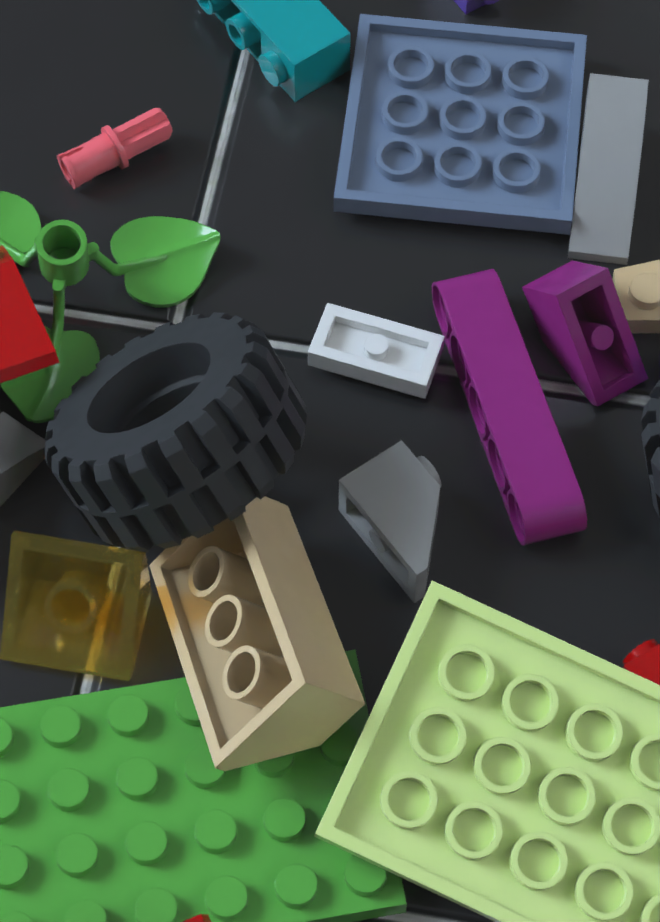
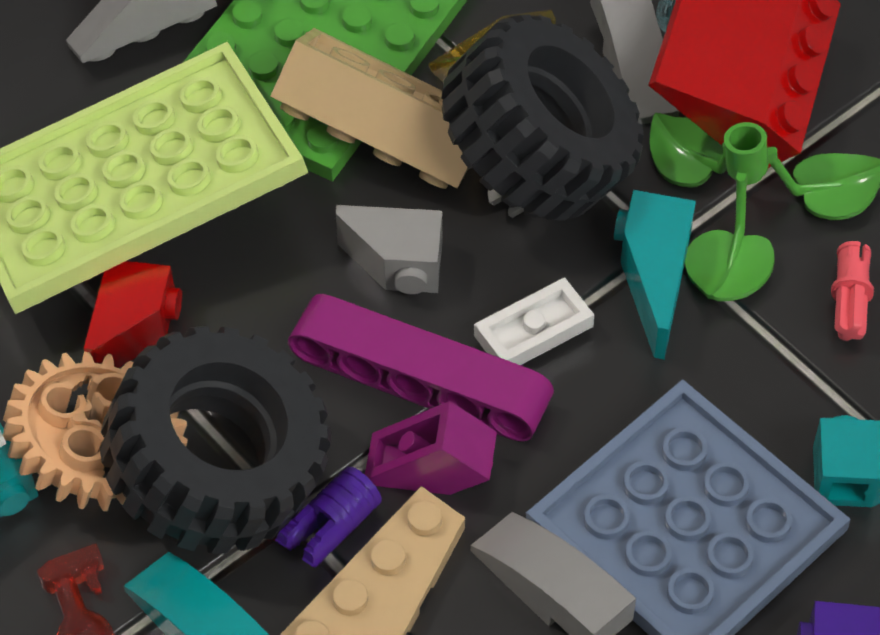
camera: 130 degrees right, 5 degrees down
(232, 282) = (653, 258): none -> teal slope

